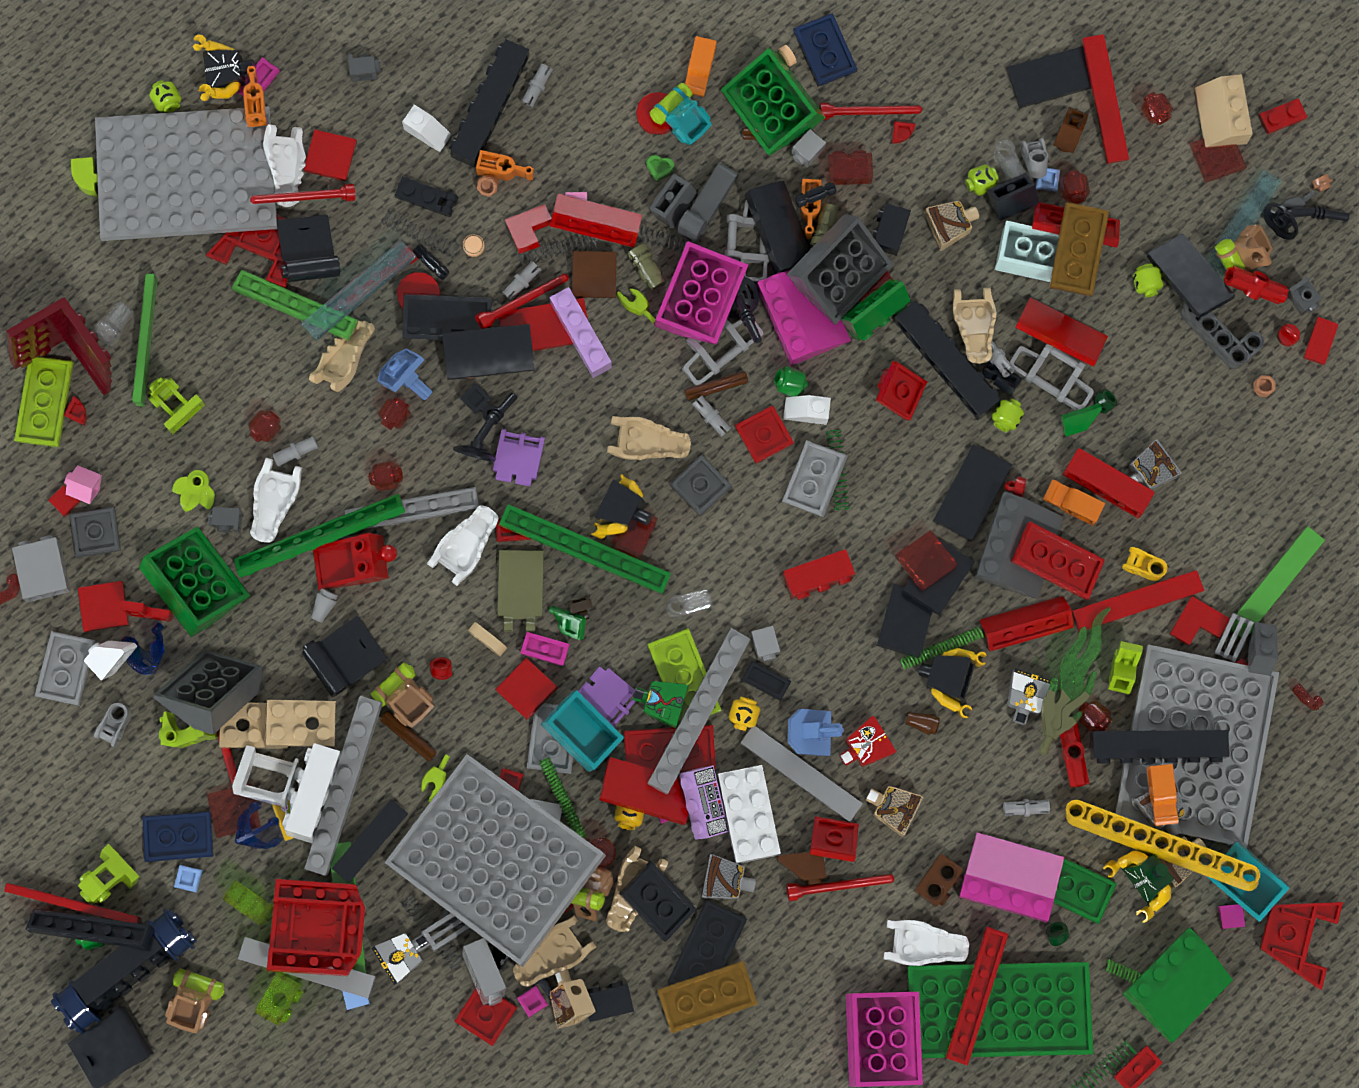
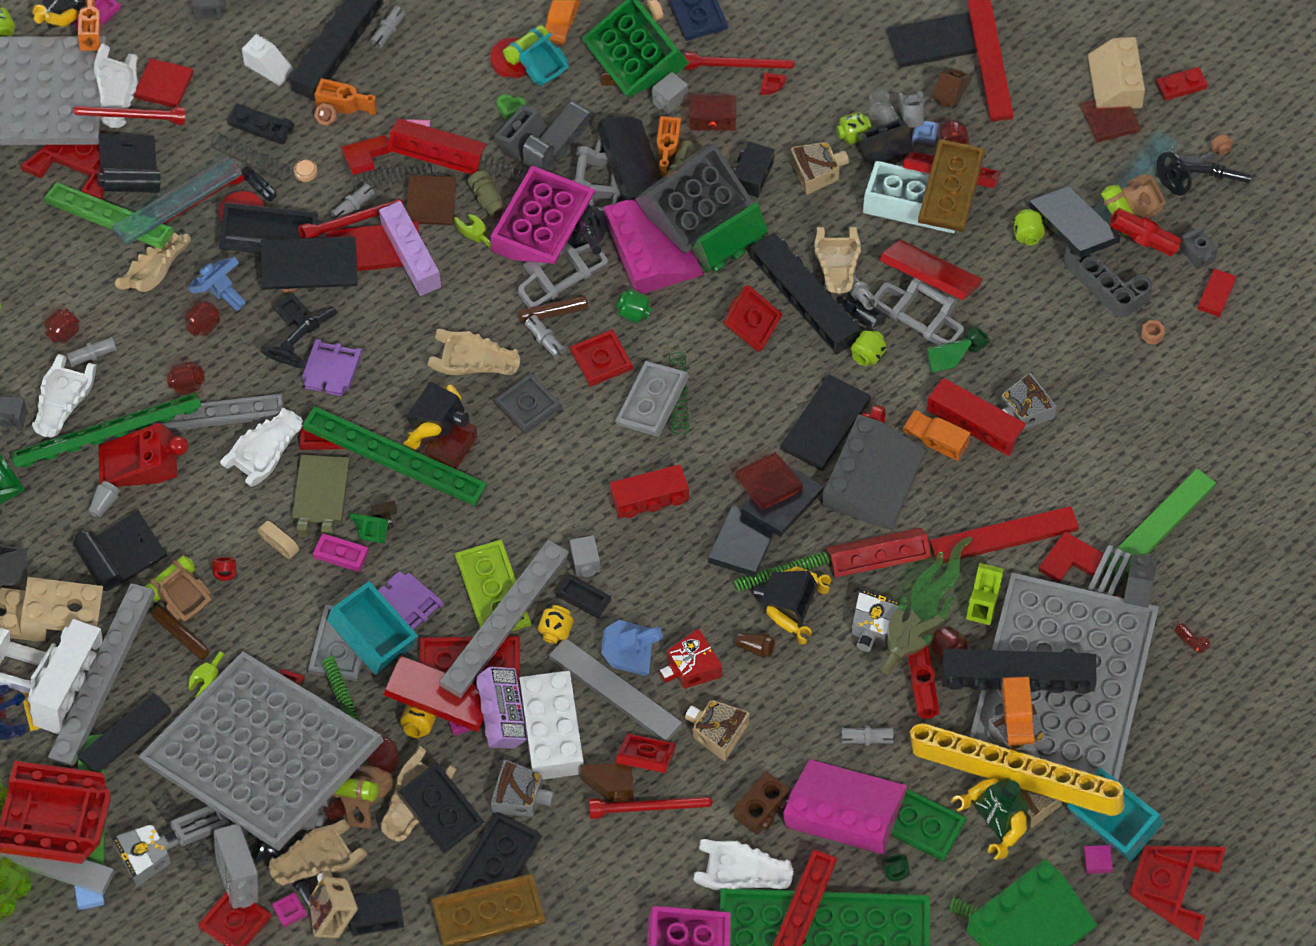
camera: 10 degrees right, 20 degrees down
(526, 689) = (316, 590): red tile -> none
(663, 701) = (465, 604): green torso -> none
(691, 603) = (503, 514): clear piece -> none
(807, 409) = (651, 333): white slope -> none
(815, 194) = (672, 129): black axle -> none
(1058, 560) = (915, 487): red tile -> none
(1143, 564) = (1011, 498): yellow piece -> none
(1157, 108) = (1045, 69): clear red head -> none
(1288, 335) = (1181, 285): red tile -> none

